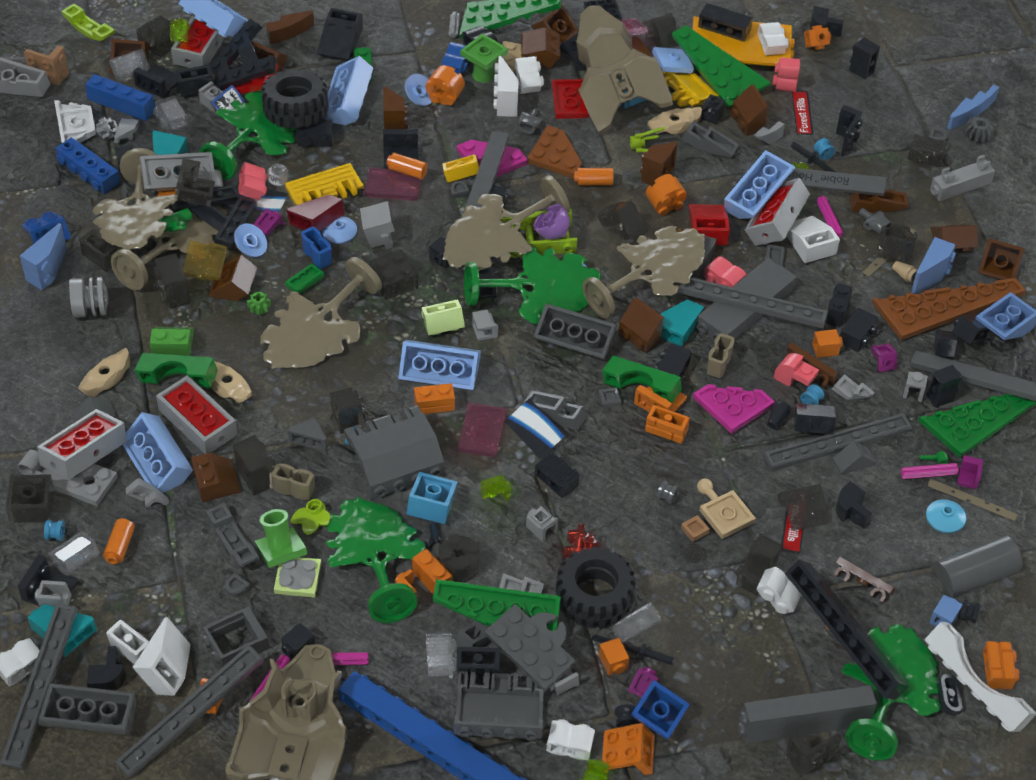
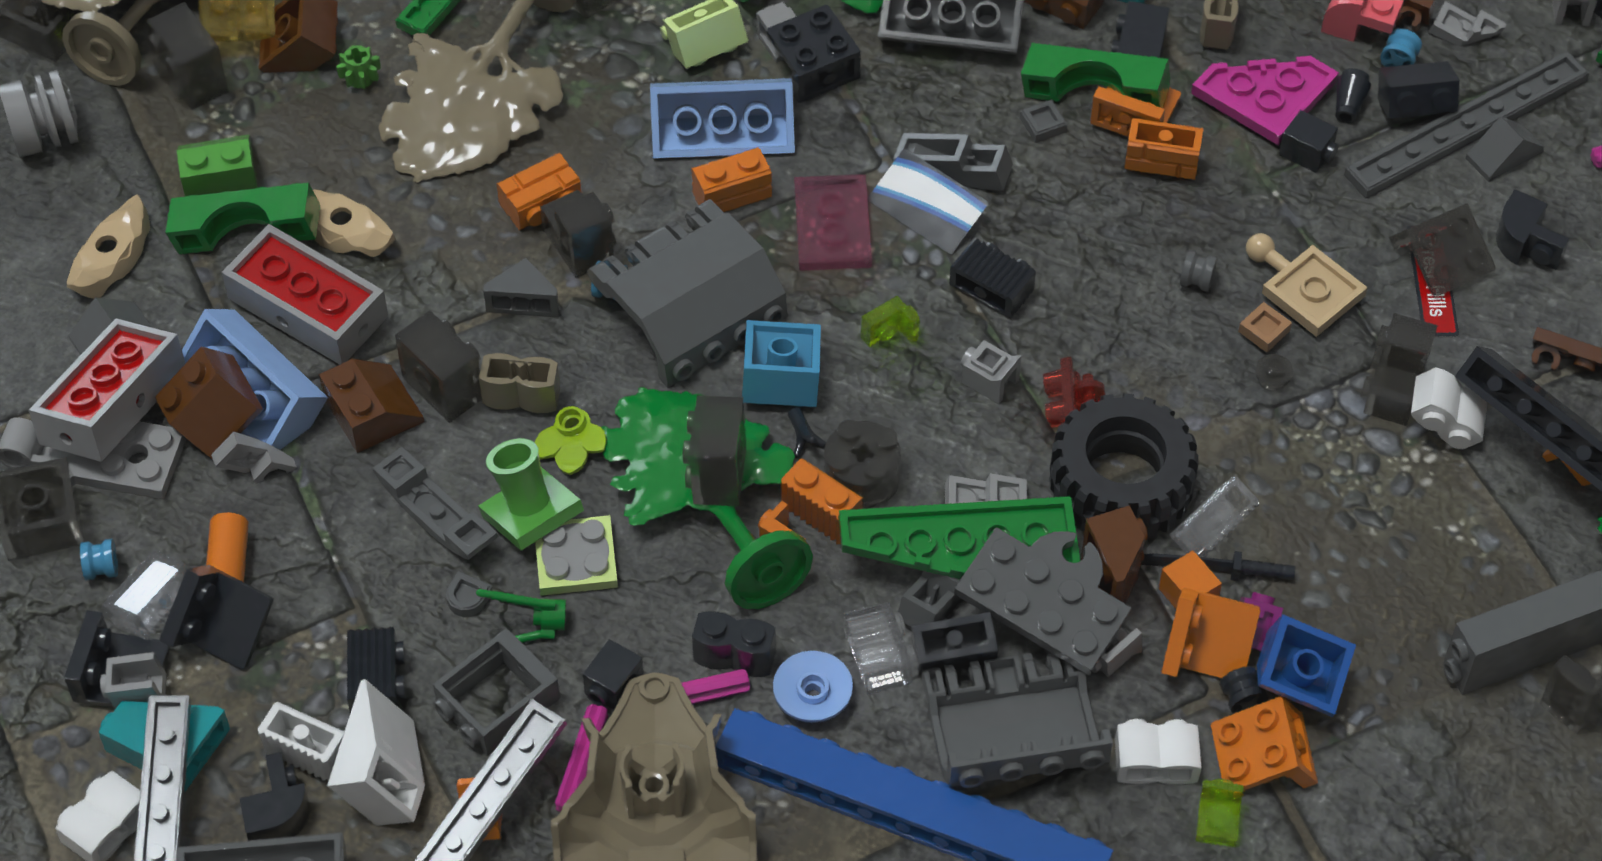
camera: 10 degrees left, 5 degrees up
(104, 569) = (217, 615): none -> black bracket
(131, 459) = (209, 399): none -> reddish brown slope
(178, 609) = (376, 658): none -> black brick
(273, 603) = (548, 613): none -> green plant
(330, 382) = (534, 187): none -> orange brick
(364, 638) = (728, 643): none -> black brick
(381, 535) = (716, 450): none -> clear smoke brick
(399, 661) = (812, 672): none -> light blue dish
(497, 339) = (816, 52): none -> black bracket
(579, 631) = (1120, 545): none -> reddish brown slope
(614, 683) = (1210, 634): none -> orange bracket
(747, 435) = (1309, 141): none -> black brick

